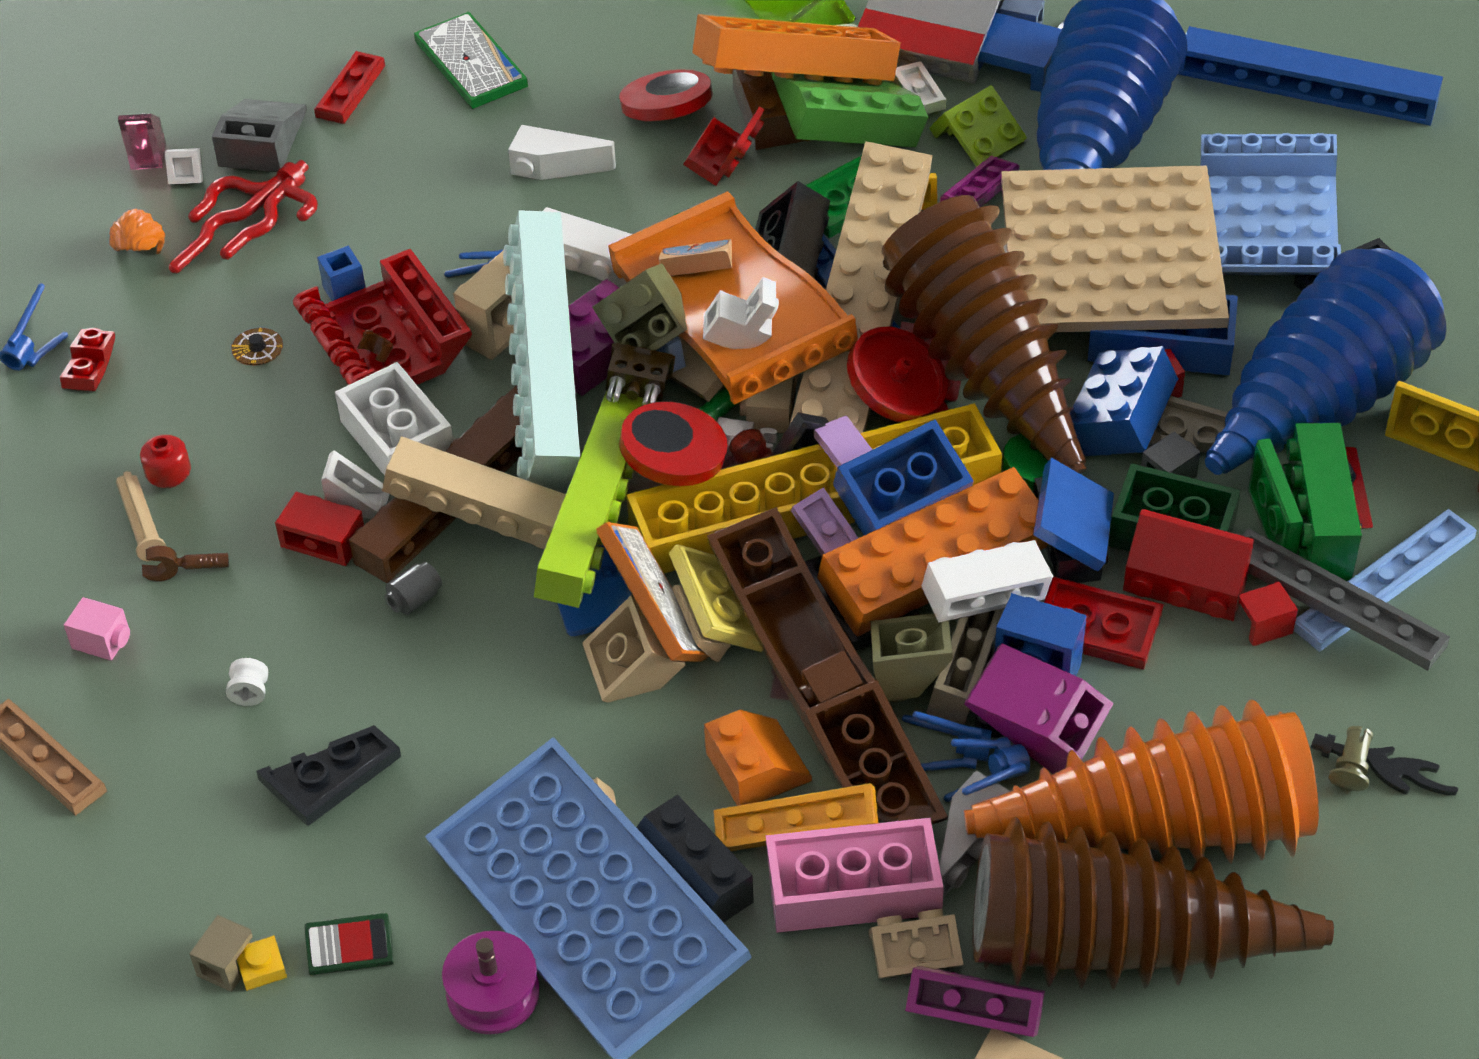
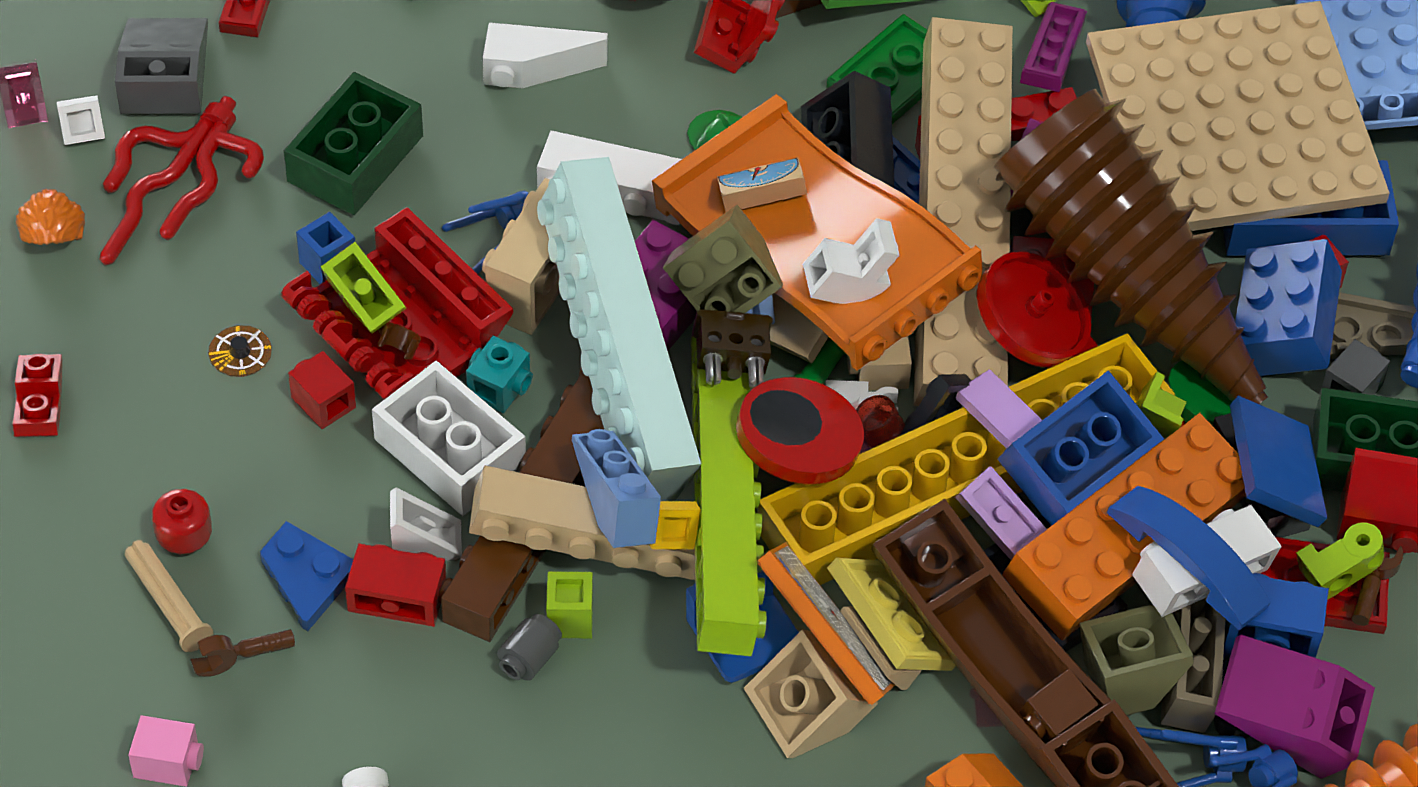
camera: 15 degrees left, 5 degrees up
(252, 512) = (306, 571): none -> blue wing
(308, 379) = (322, 389): none -> red brick
(354, 300) = (362, 288): none -> lime slope
(388, 201) = (353, 143): none -> dark green brick
(450, 381) = (499, 373): none -> teal brick
(455, 558) = (571, 603): none -> lime panel
(505, 468) = (618, 489): none -> medium blue slope
(544, 501) = (677, 525): none -> yellow tile
(976, 568) = (1197, 548): none -> blue slope
(980, 459) = (1161, 407): none -> lime panel
(1115, 600) = (1345, 560): none -> lime leg
(1144, 615) = (1371, 585): none -> reddish brown piece

